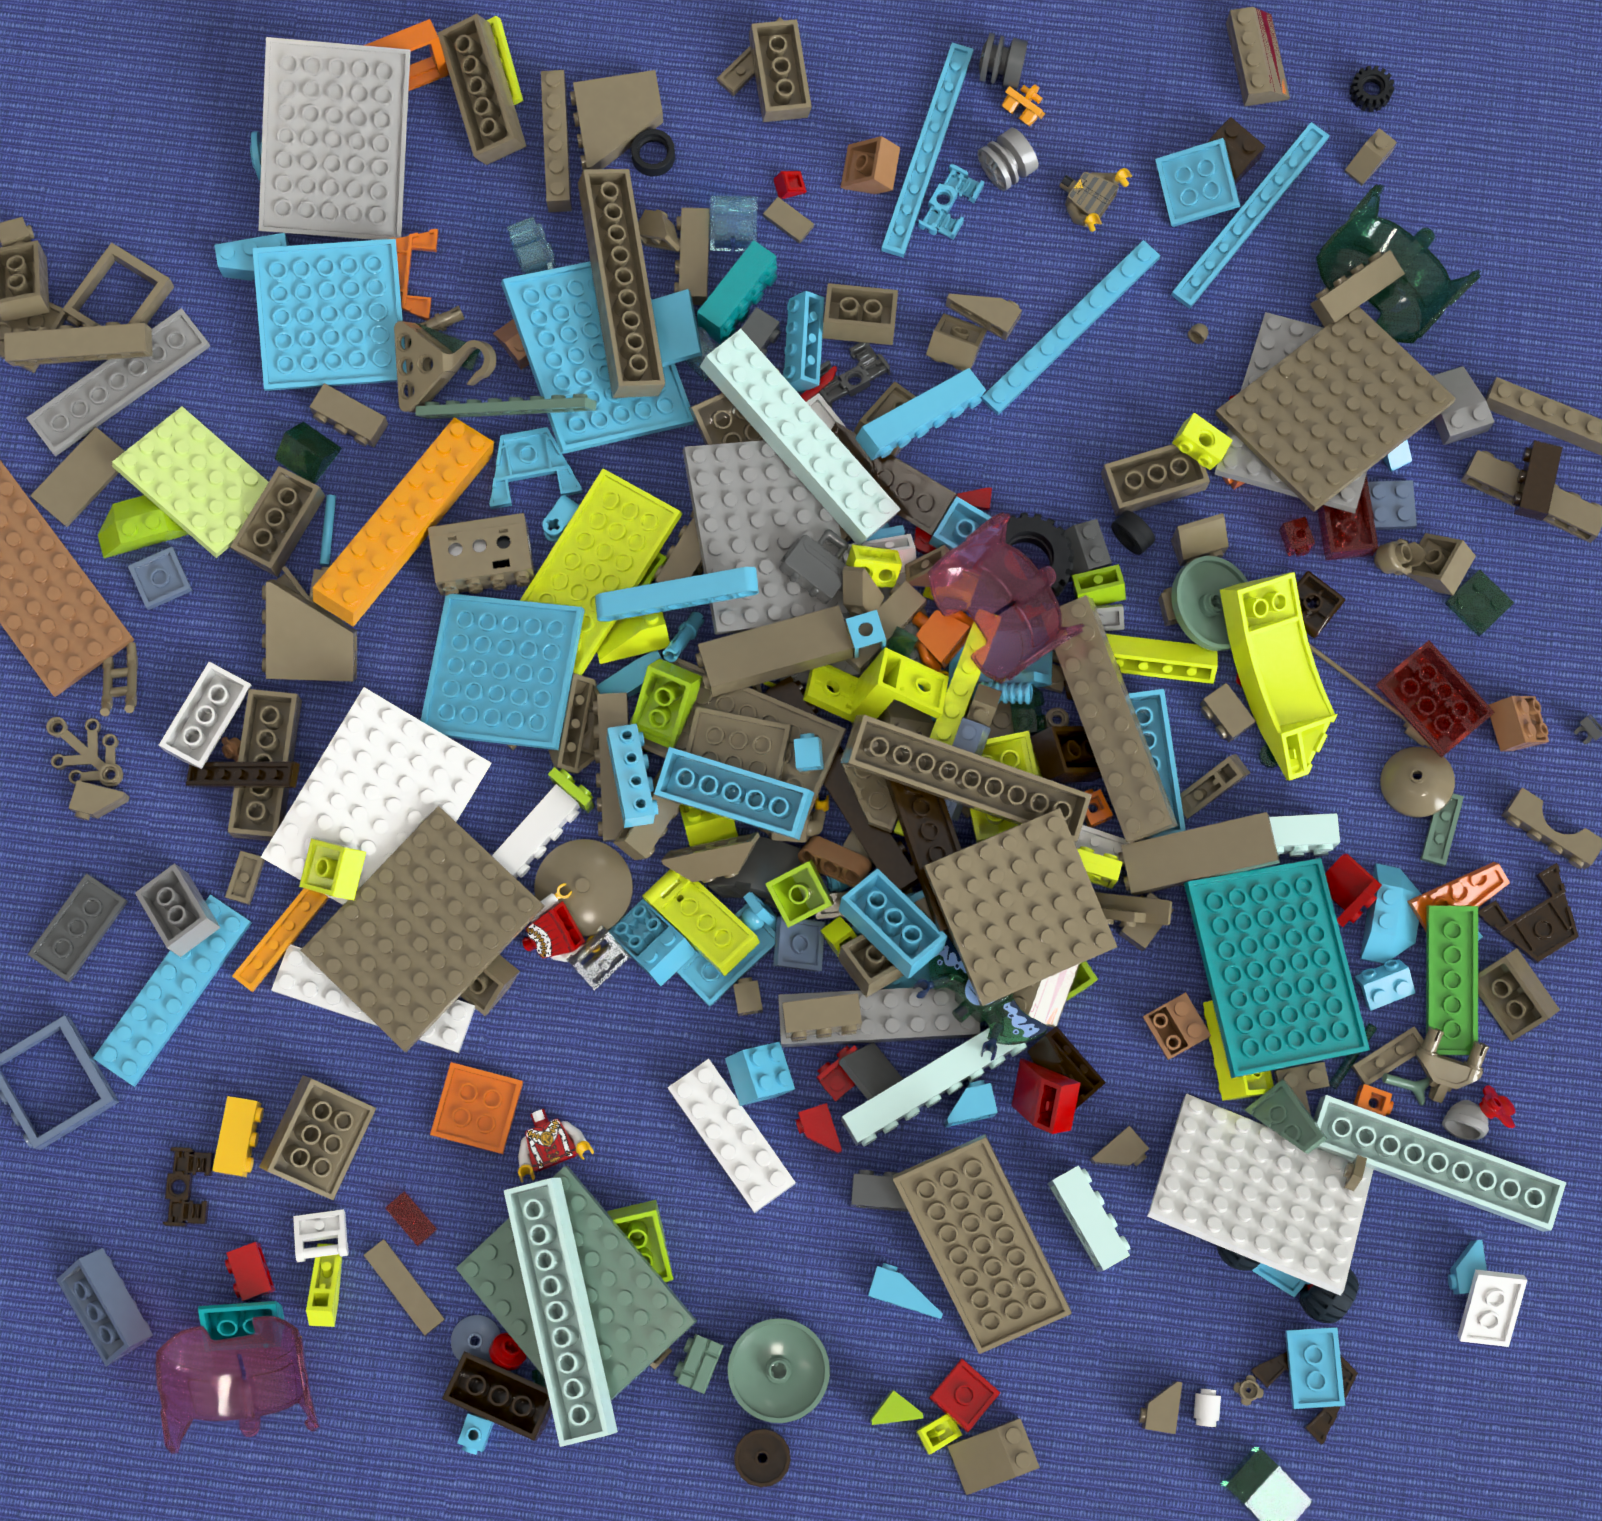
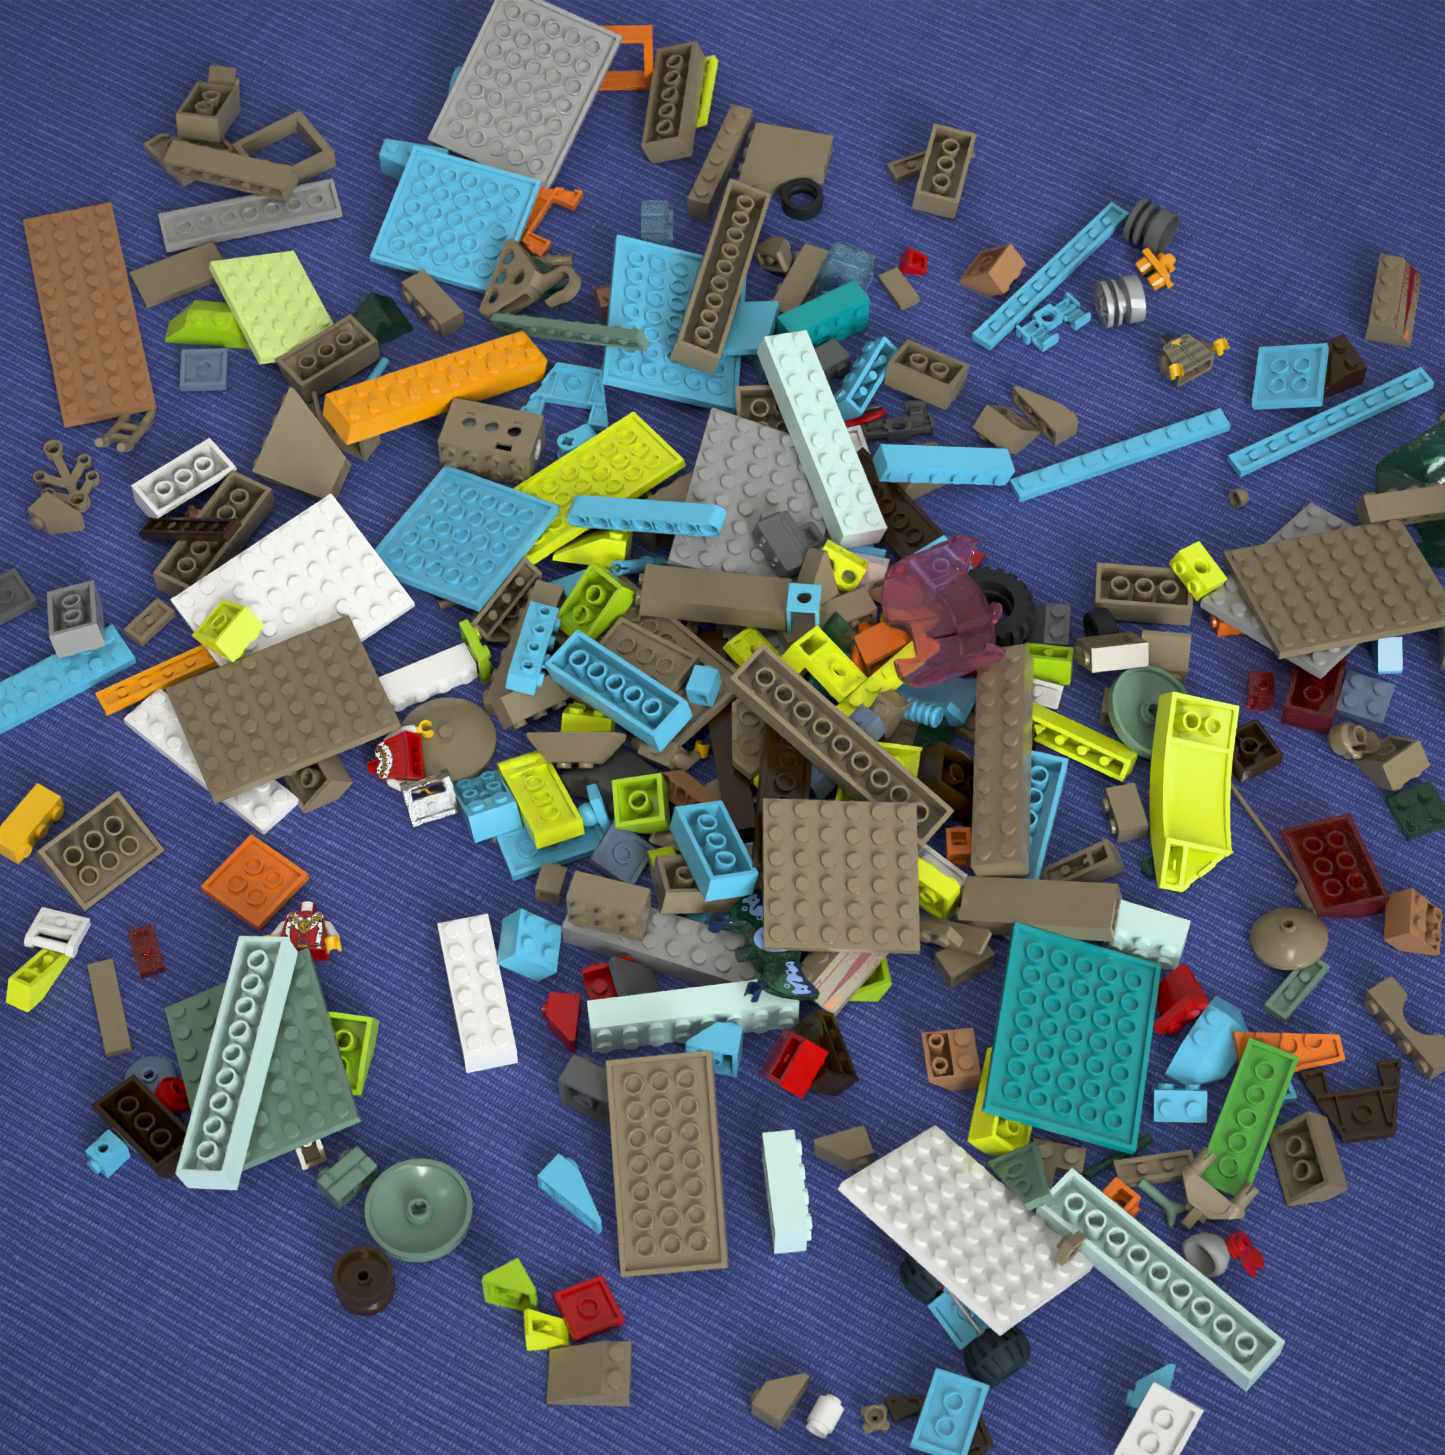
camera: 25 degrees right, 20 degrees down
(1179, 560) = (1111, 652): none -> window

